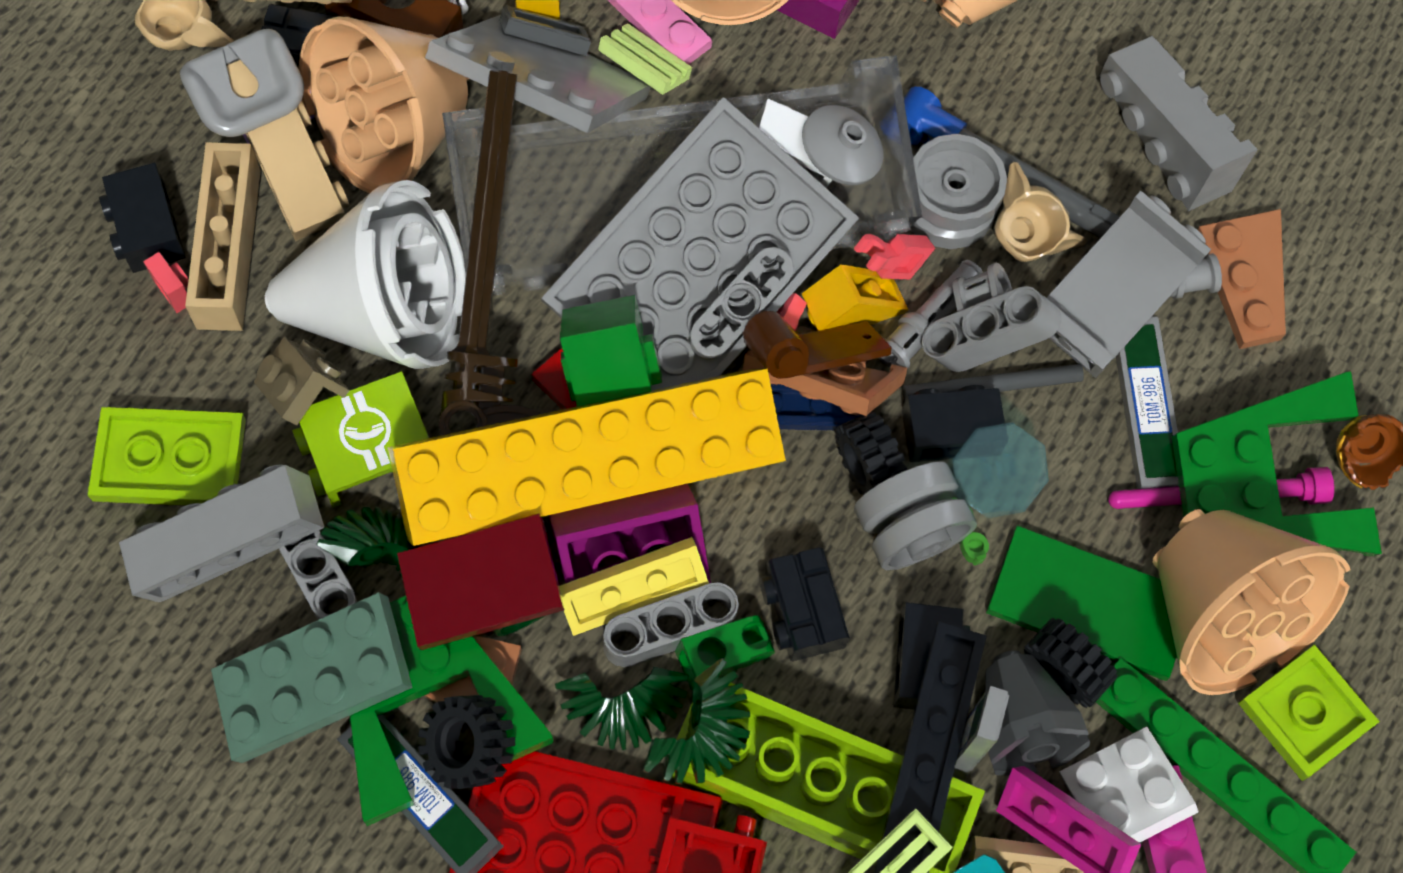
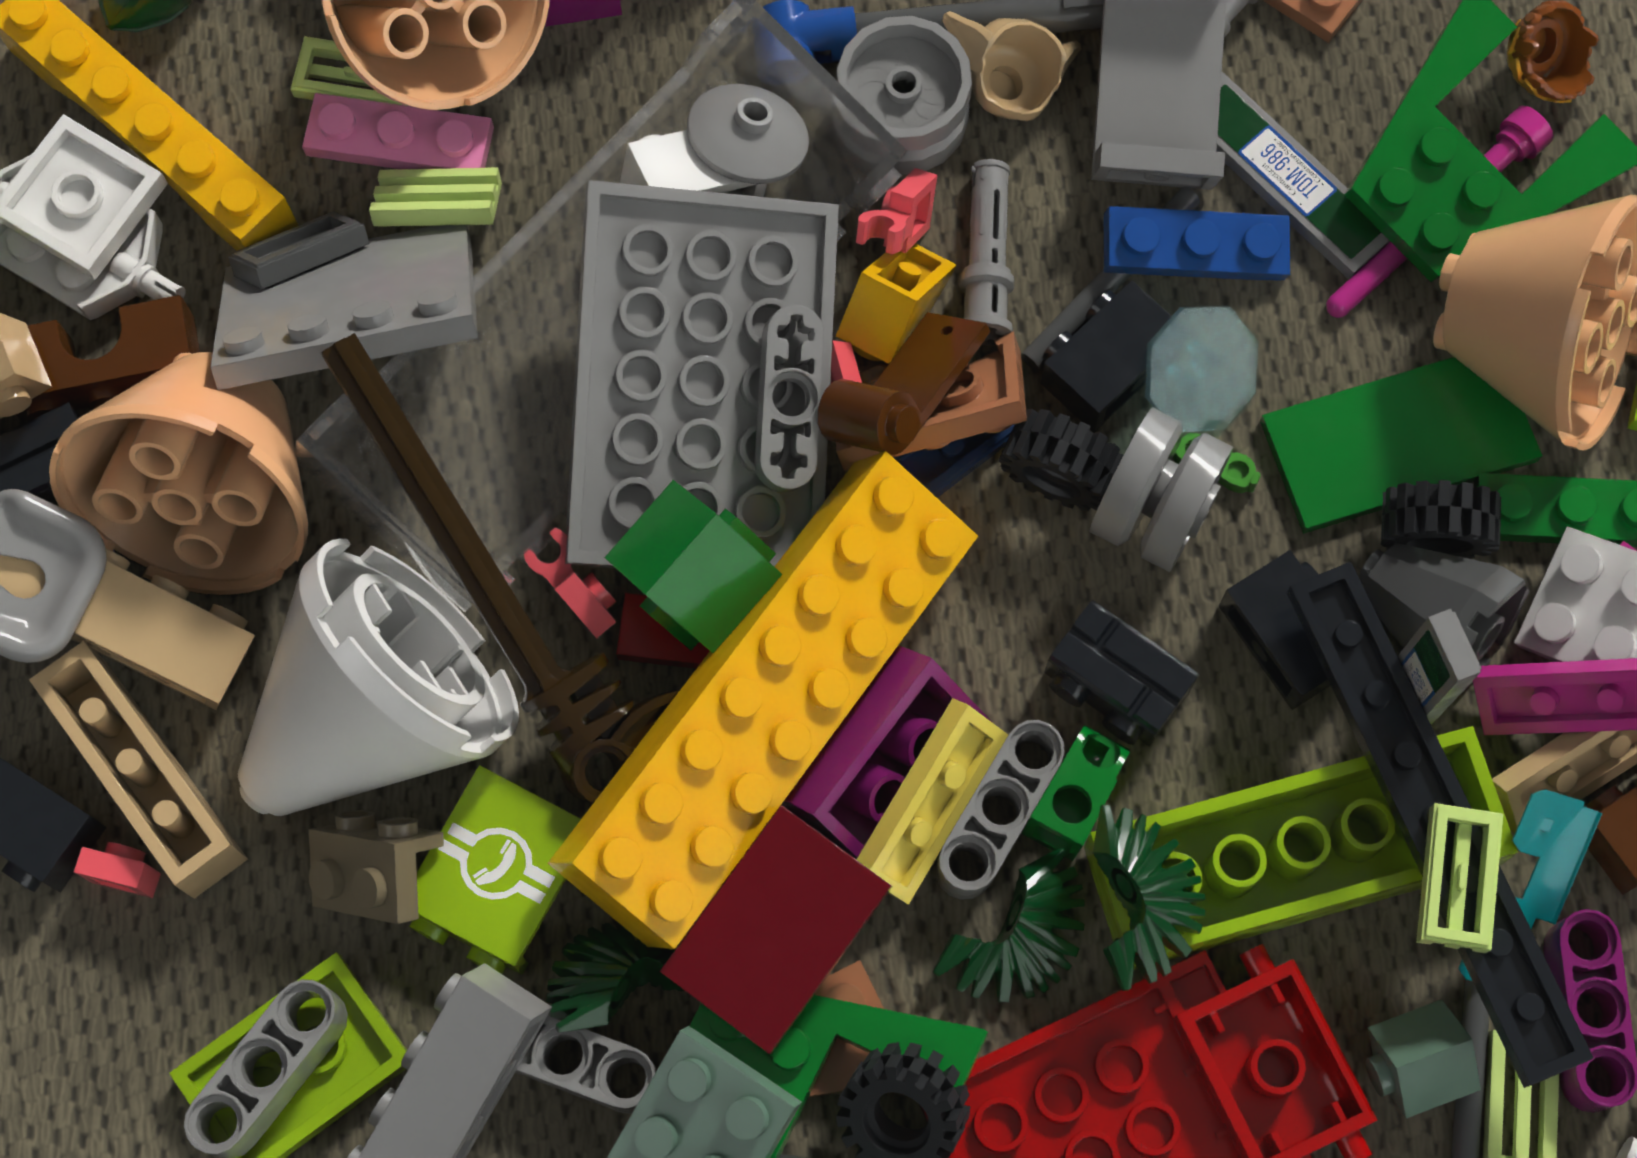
camera: 30 degrees left, 5 degrees up
(129, 432) = (234, 1080): none -> light grey beam
(537, 327) = (585, 597): none -> coral plate
(981, 304) = (1039, 200): light grey piece -> none
(1060, 401) = (1196, 243): none -> blue plate

